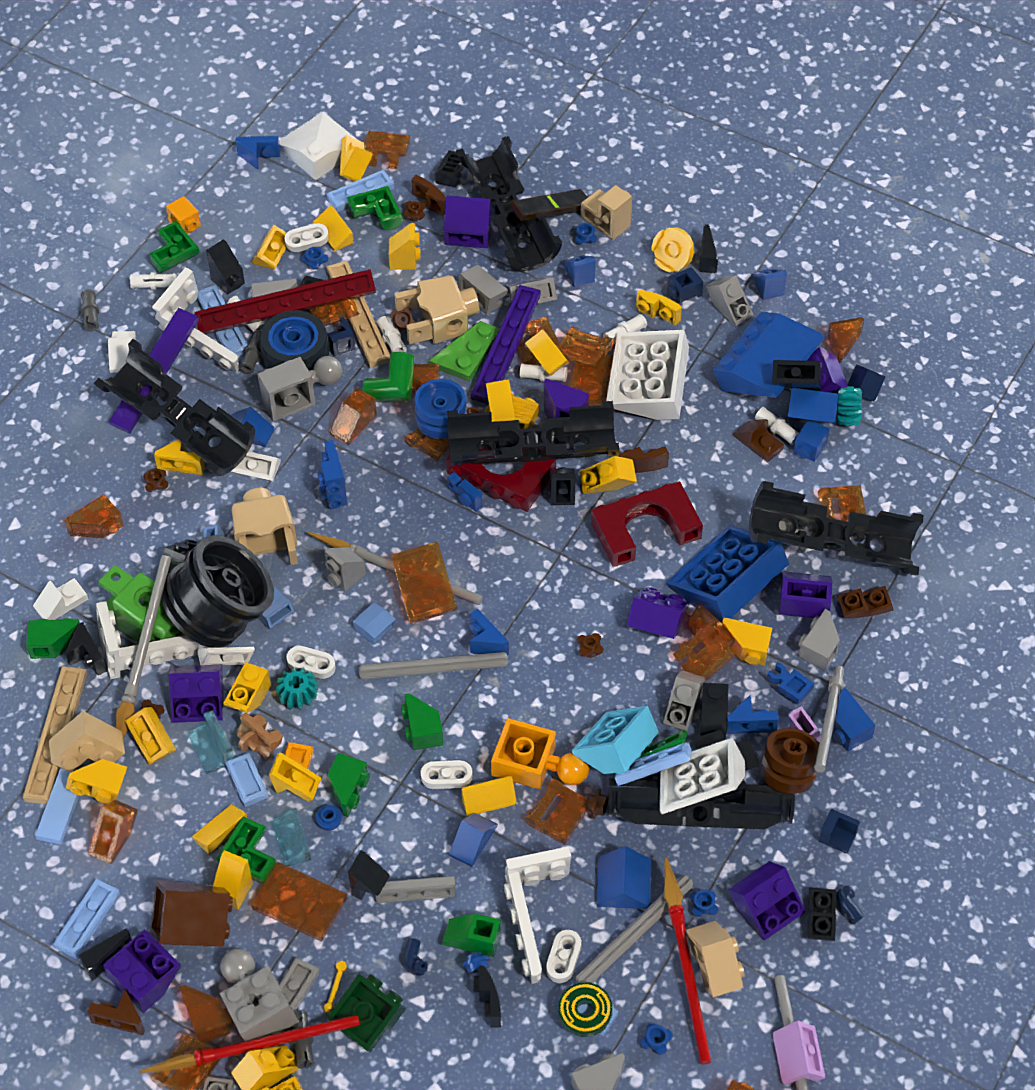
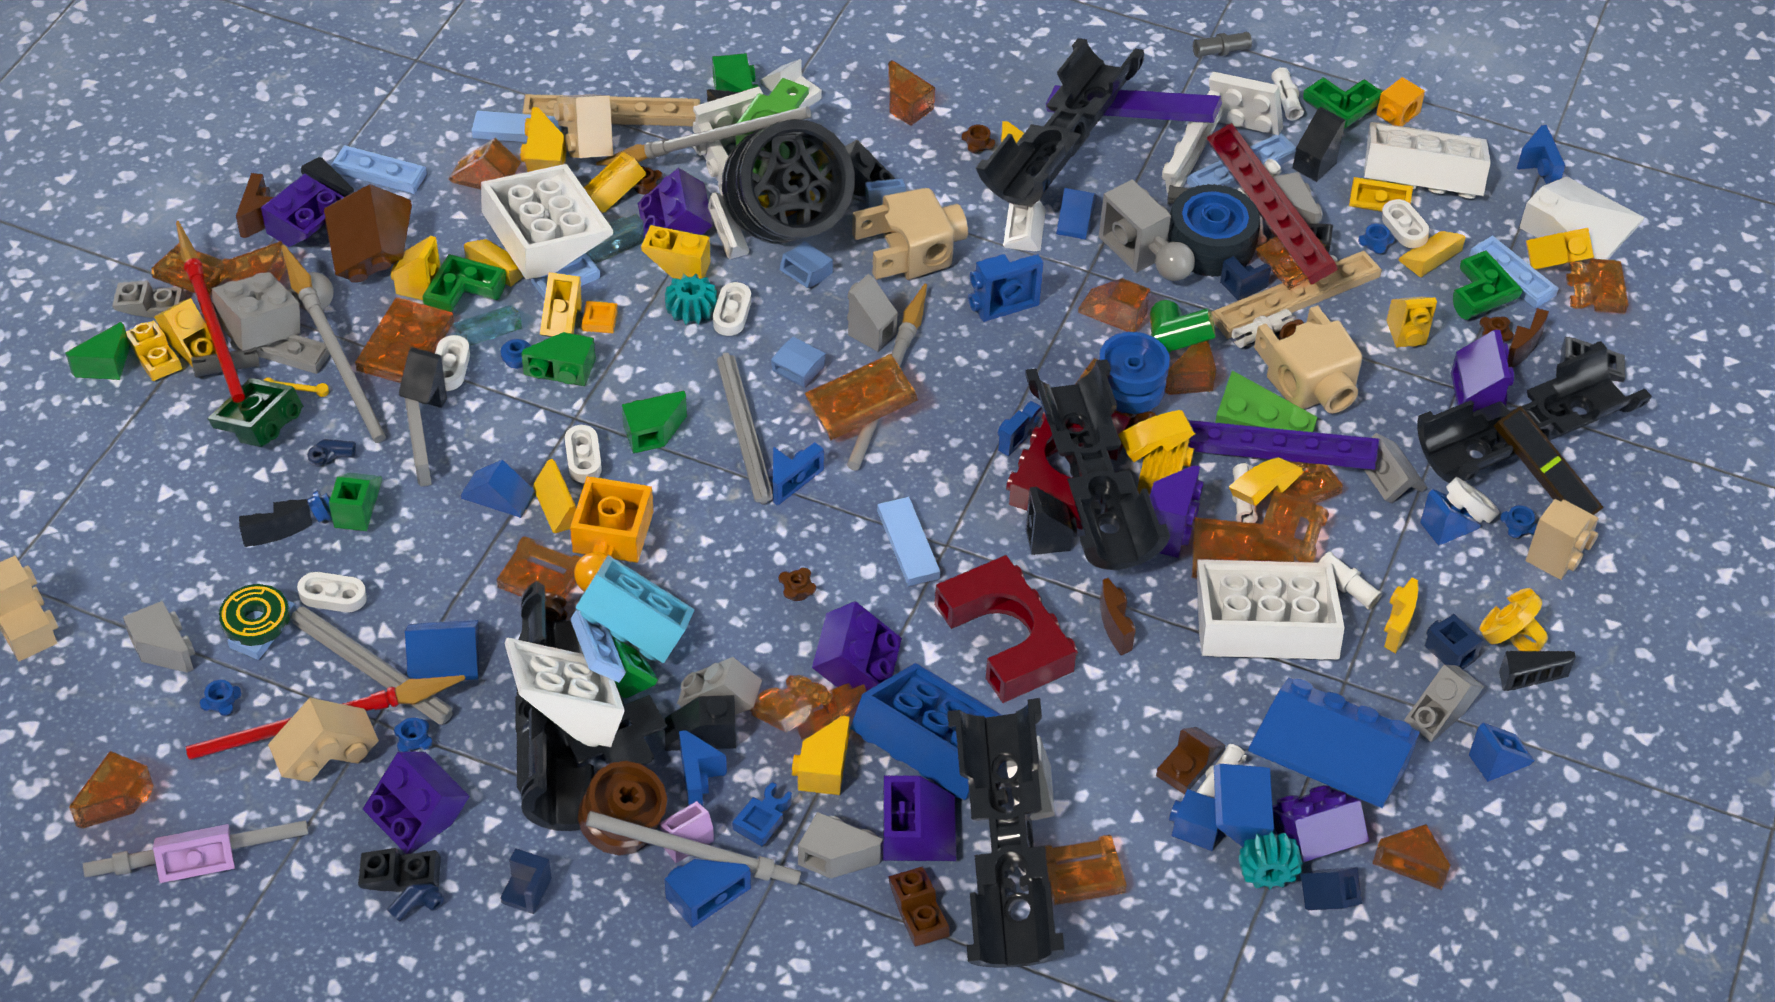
camera: 80 degrees right, 5 degrees down
(119, 349) = (1164, 78): white slope -> none
(195, 781) = (543, 218): none -> white slope
(241, 965) = (302, 284): none -> light grey piece
(244, 211) = (1427, 159): none -> white slope
(256, 738) = (615, 270): medium nougat hips -> none
(334, 861) = (454, 366): none -> white plate
(486, 288) = (1373, 409): light grey hinge -> none
(529, 871) = (387, 536): white bracket -> none
(557, 574) = (908, 541): none -> light blue tile
(573, 250) = (1475, 502): none -> white plate
(608, 475) = (1075, 576): yellow slope -> none
(798, 374) = (1286, 766): black slope -> none

